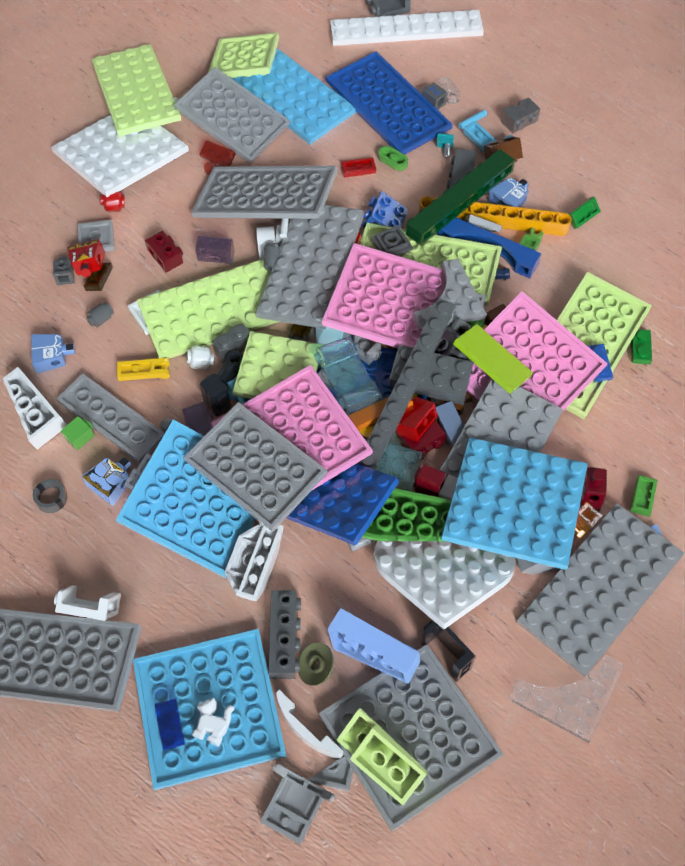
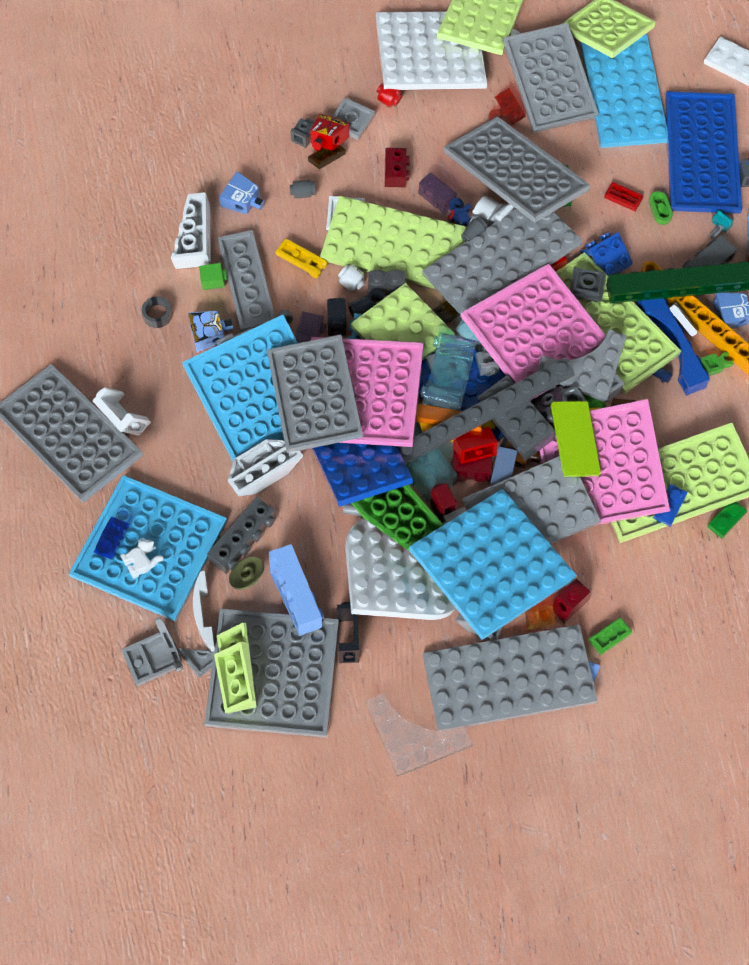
camera: 35 degrees right, 5 degrees up
(247, 253) = (459, 213): none -> dark blue hips

